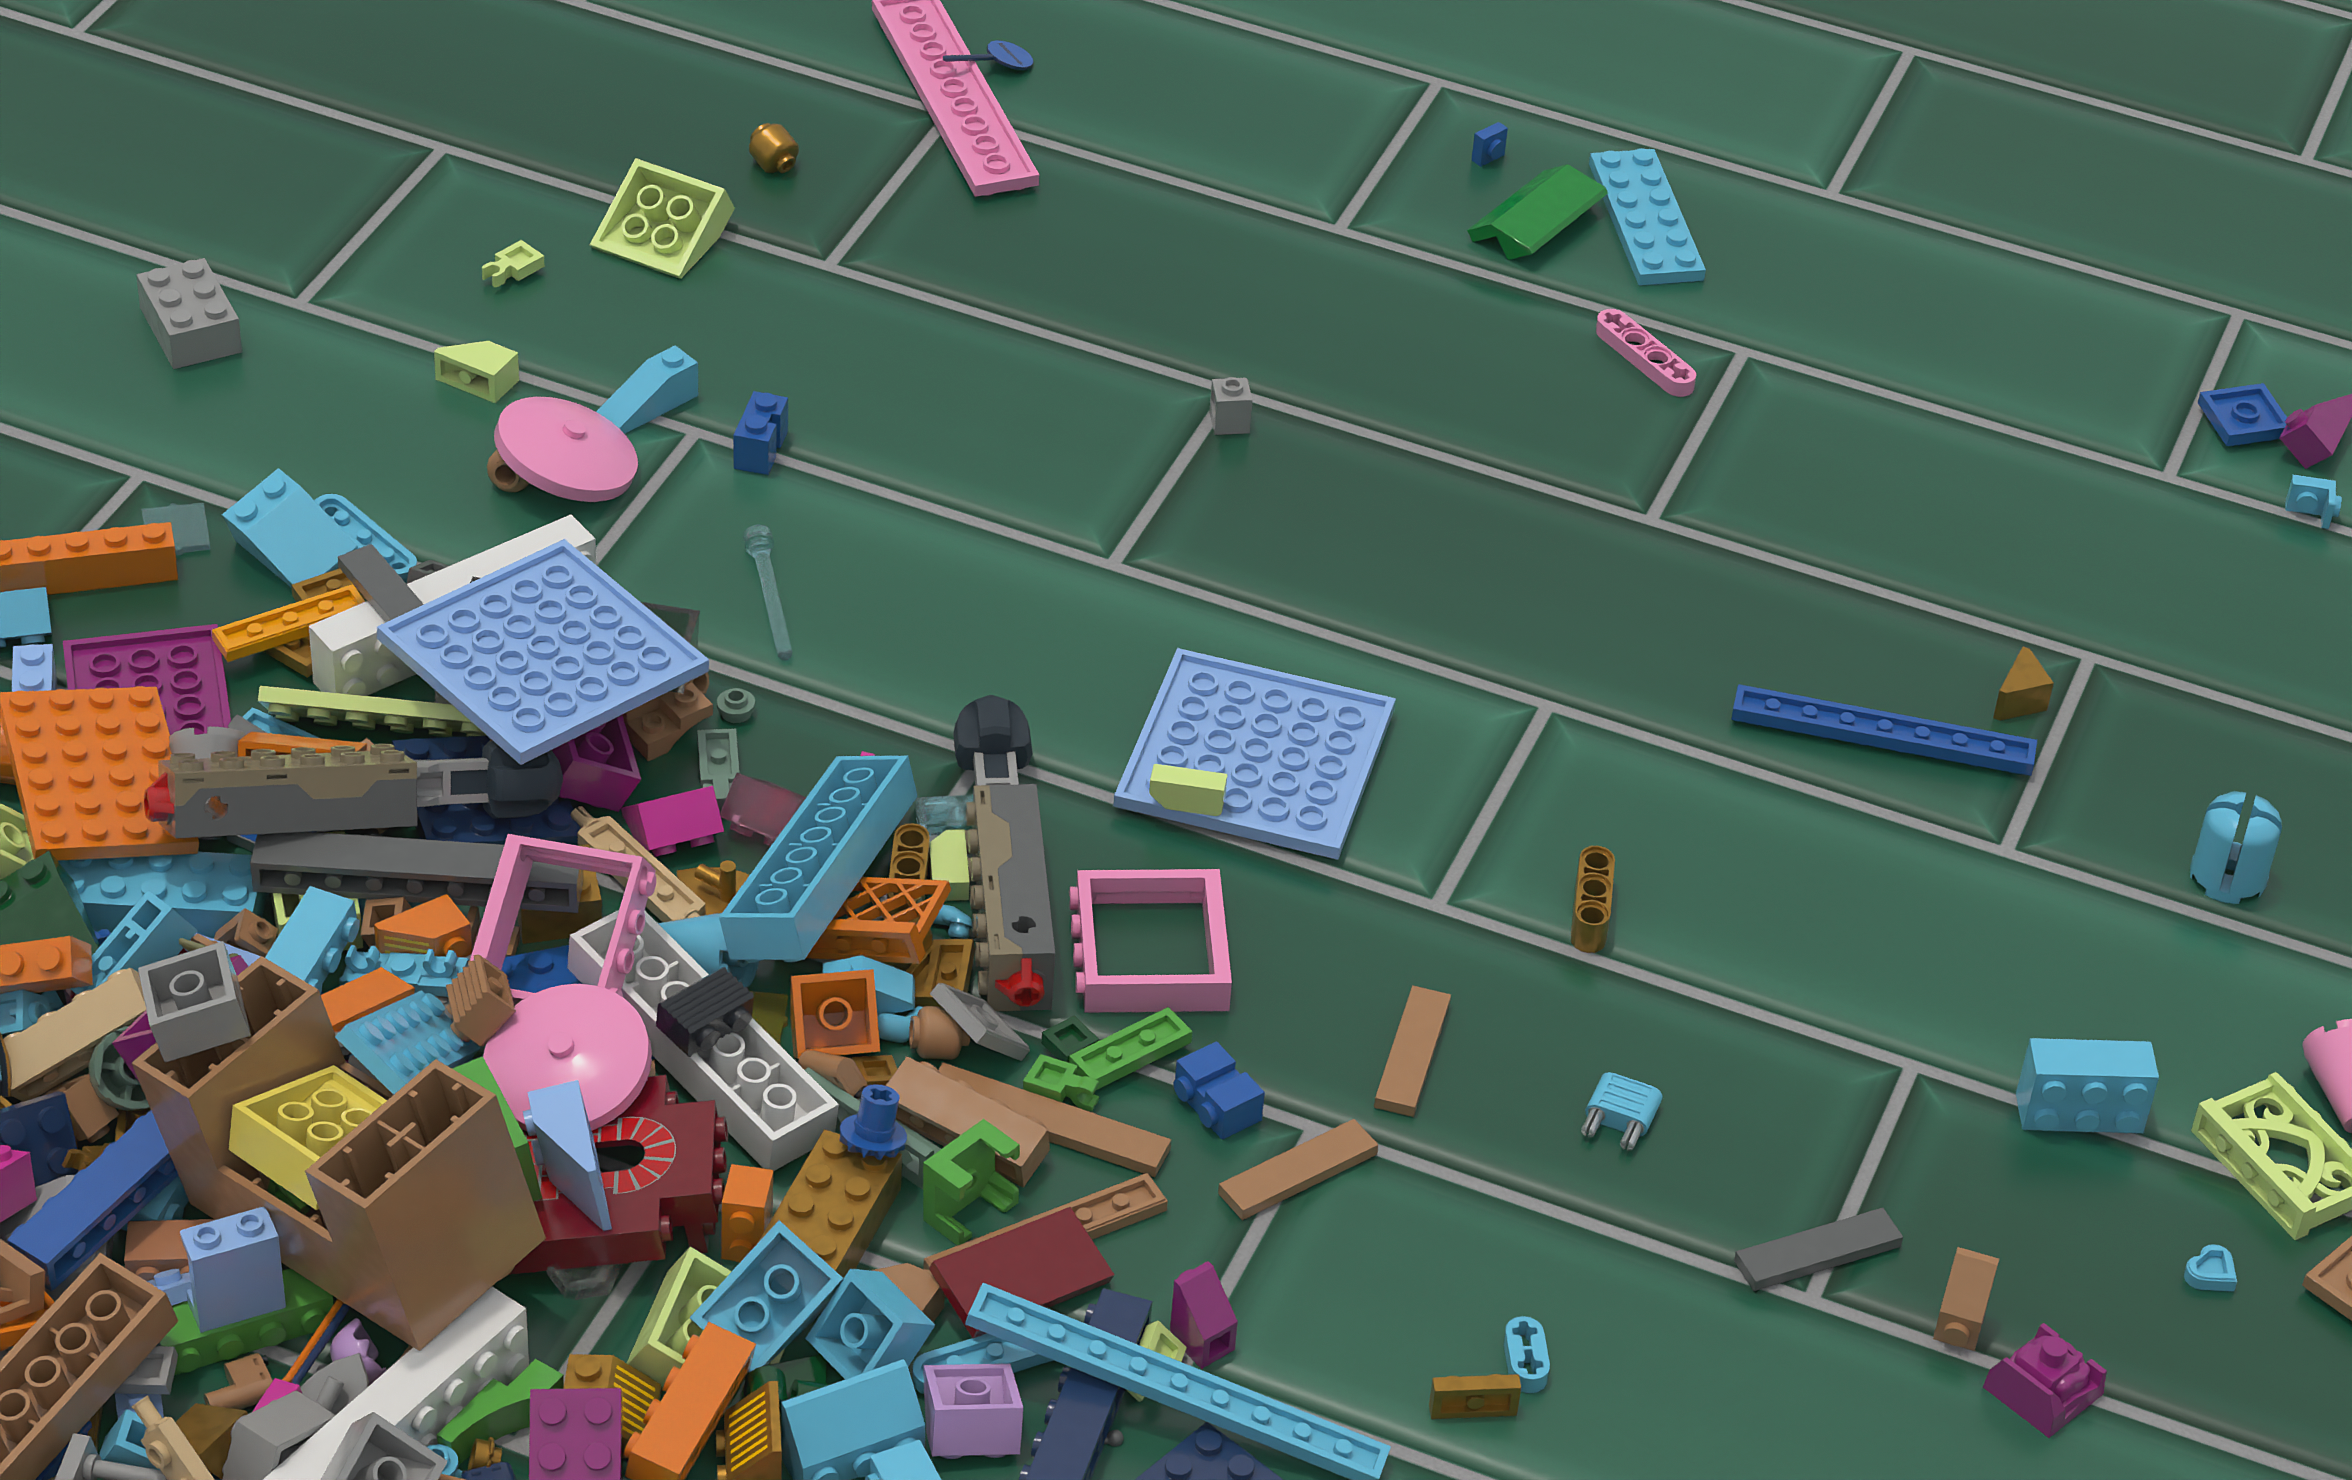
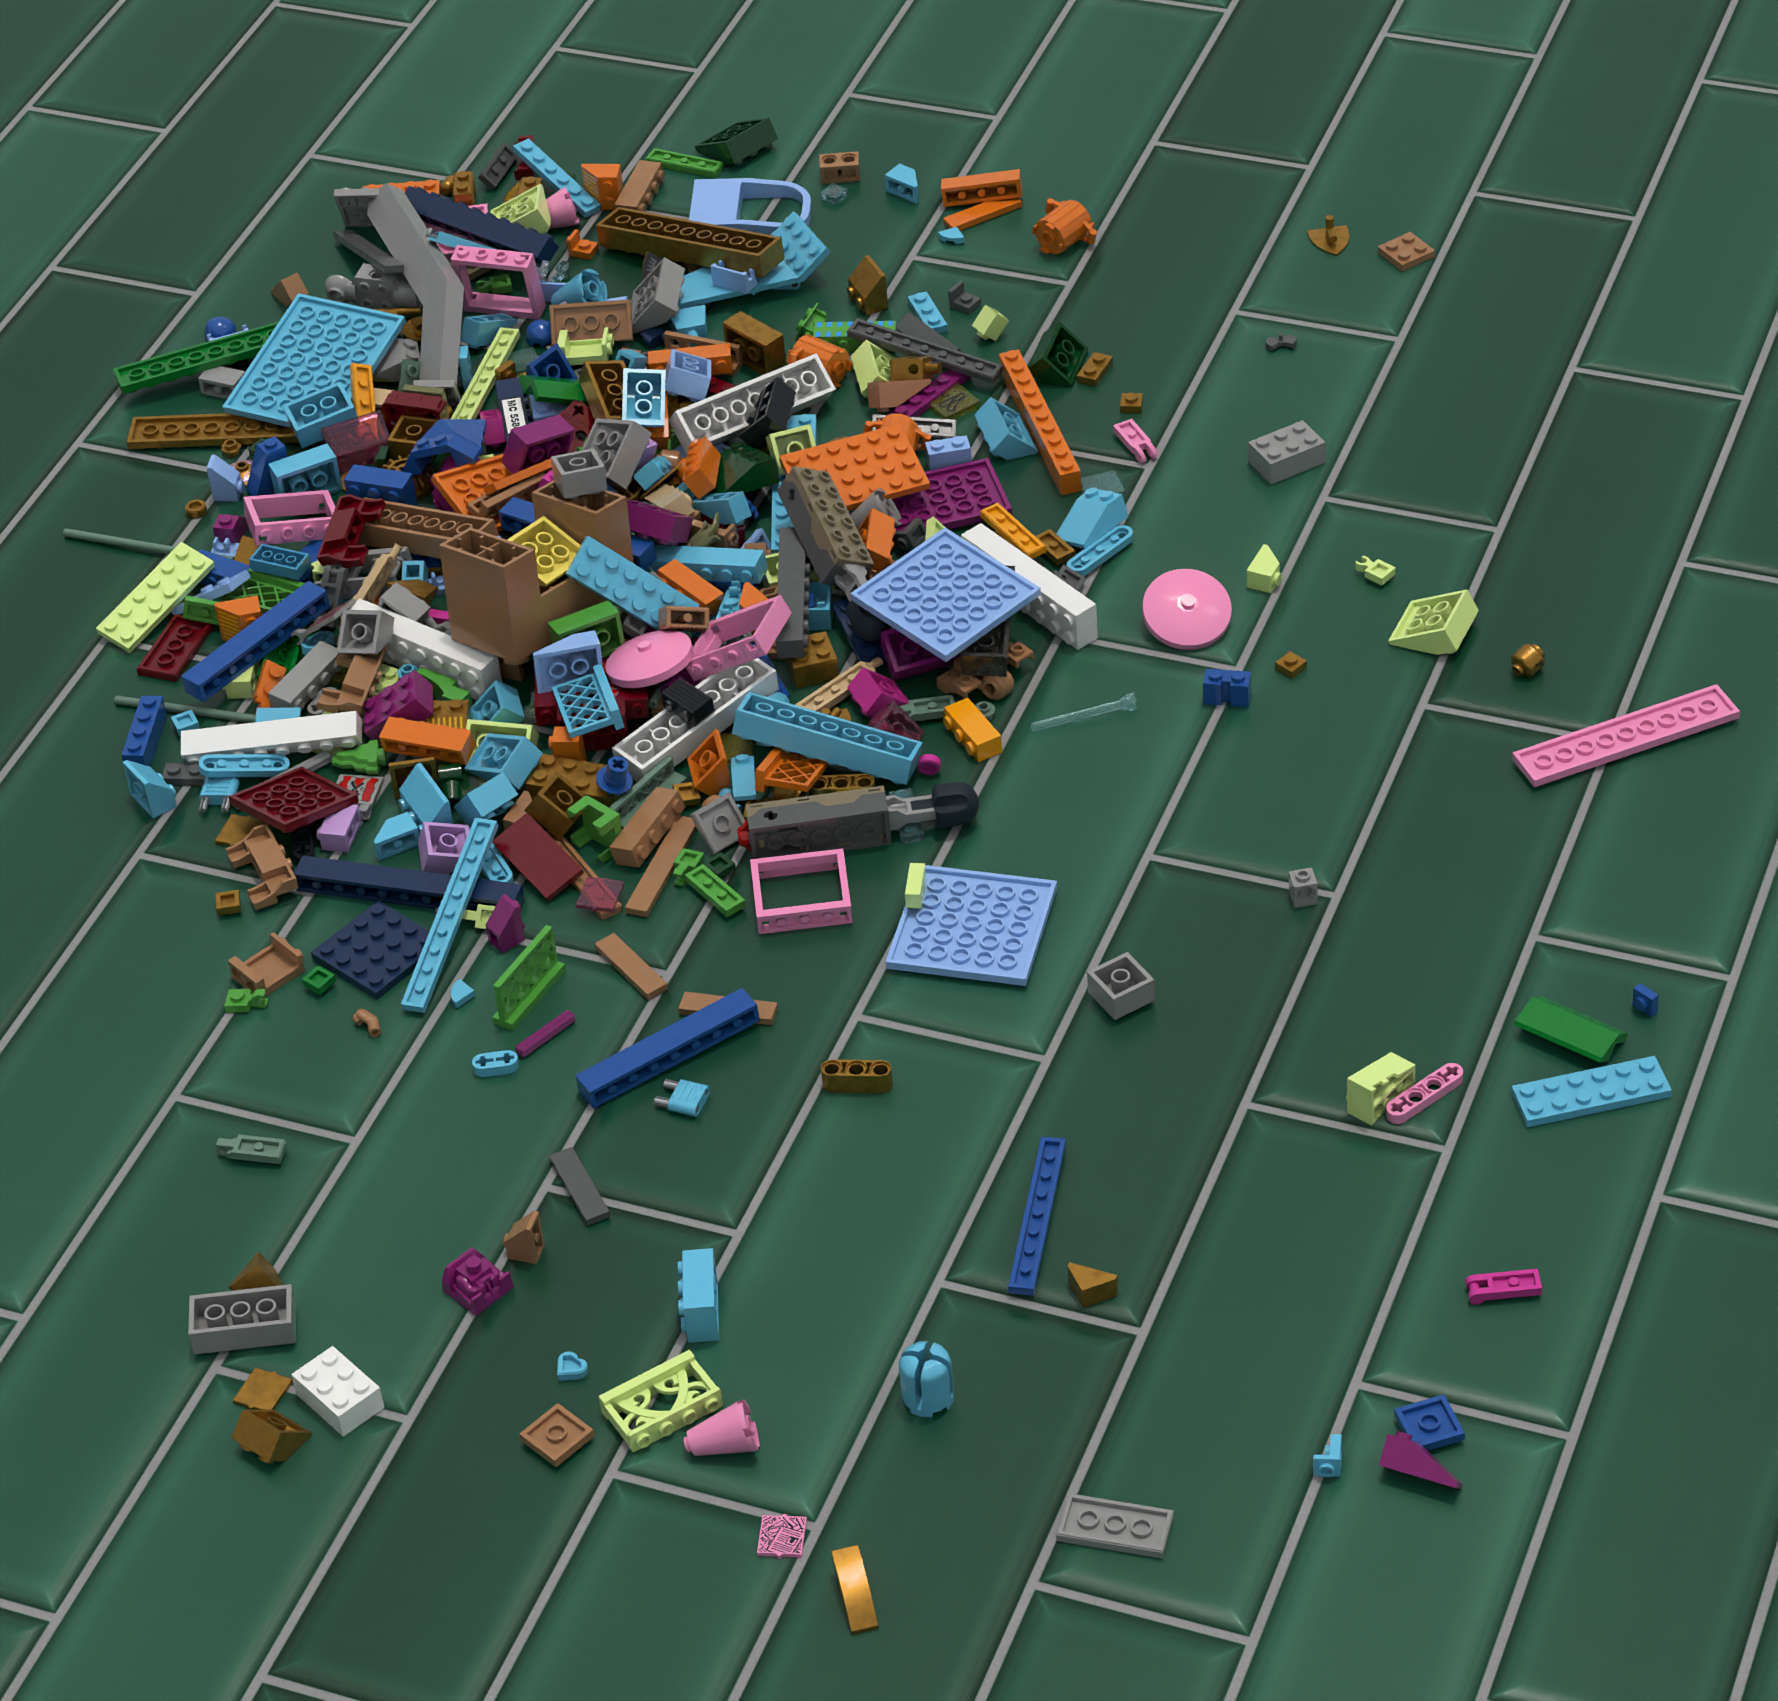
camera: 95 degrees right, 0 degrees up
(77, 474) = (1135, 440): none -> bright pink hinge
(378, 582) = (1013, 540): dark grey tile -> none
(582, 1324) = (498, 704): none -> medium azure slope
(653, 390) = (1260, 640): medium azure slope -> none
(680, 1112) = (603, 698): none -> medium azure fence
(712, 374) = (1291, 664): none -> pearl gold plate
(789, 714) = (972, 730): none -> light orange brick
(836, 1069) = (668, 769): medium nougat piece -> none
(908, 1226) = (551, 805): none -> pearl gold brick
(1000, 51) = (1677, 757): piece -> none
(1122, 1196) = (600, 894): none -> clear pink piece
(1218, 1091) = (683, 927): blue brick -> none
(1343, 1401) = (461, 993): none -> medium azure tile
(1345, 1299) = (527, 991): none -> bright green fence
(1428, 596) = (1121, 985): none -> light grey brick
(1457, 1285) = (545, 1033): none -> magenta axle
(1474, 1396) = (461, 1046): pearl gold plate -> none
(1523, 1117) = (667, 1048): none -> blue brick
(1649, 379) = (1377, 1085): none -> yellowish green wedge
(2001, 326) = (1503, 1285): none -> dark pink plate

